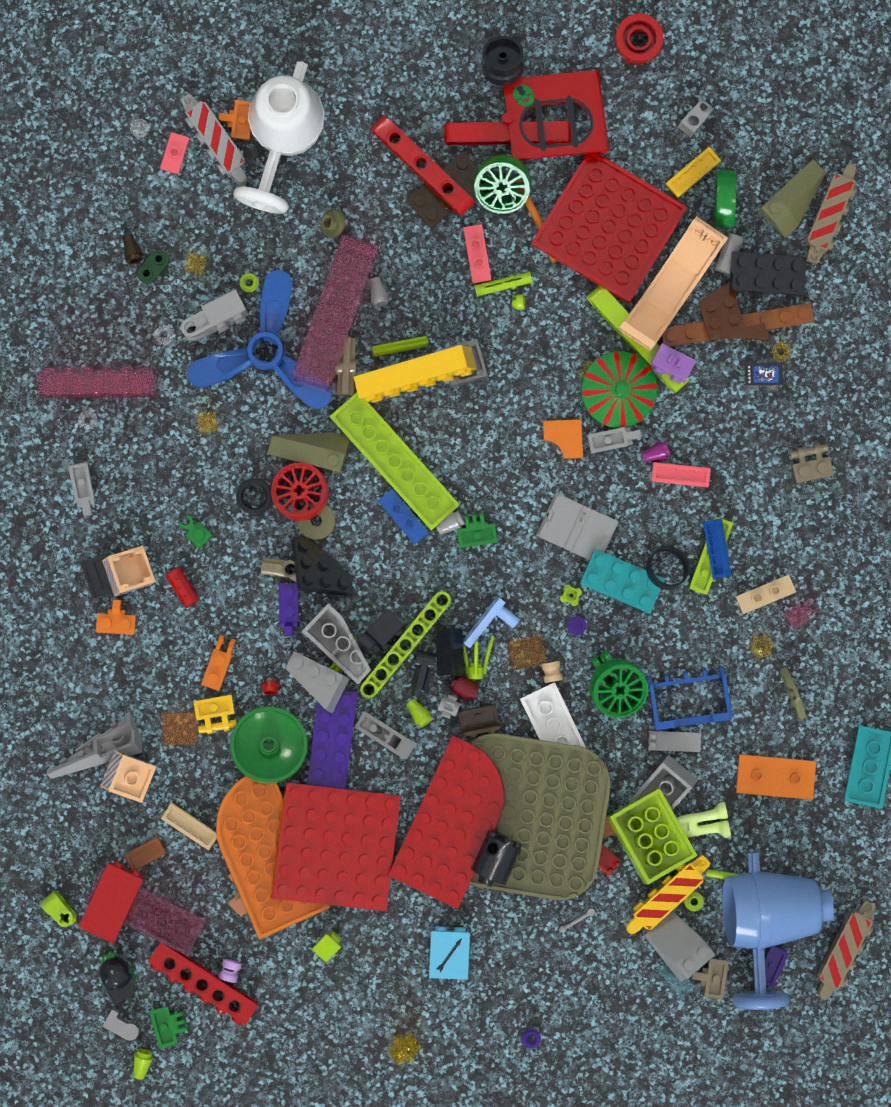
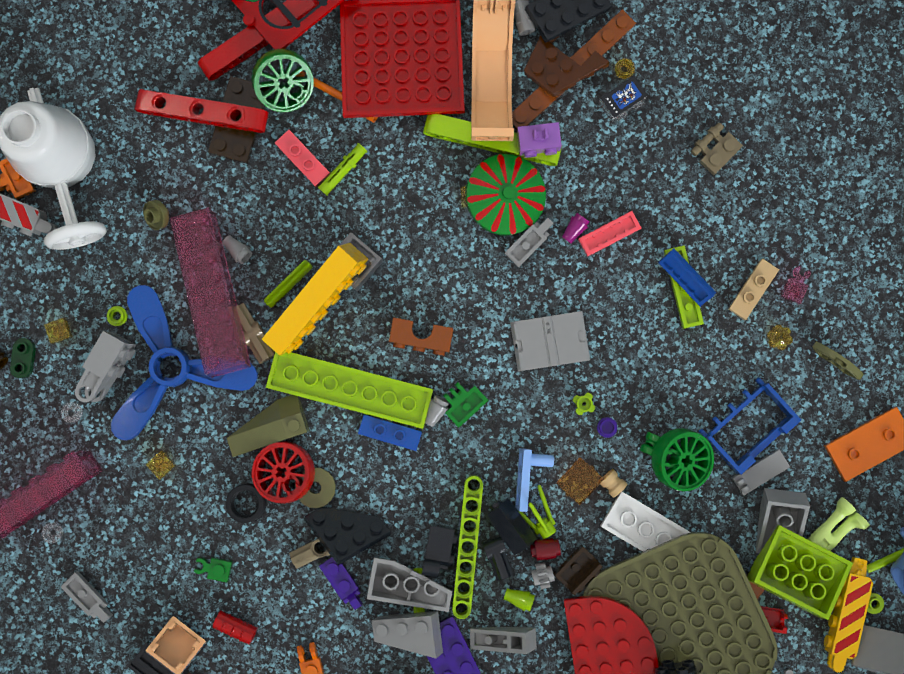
camera: 30 degrees left, 0 degrees up
(270, 687) = (372, 664): red plate -> none
(489, 470) = (438, 341): none -> dark orange arch
(518, 302) = (366, 176): lime hinge -> none
(566, 435) = (486, 266): orange tile -> none
(620, 581) = (620, 361): teal plate -> none
(680, 555) = (665, 308): black tyre -> none

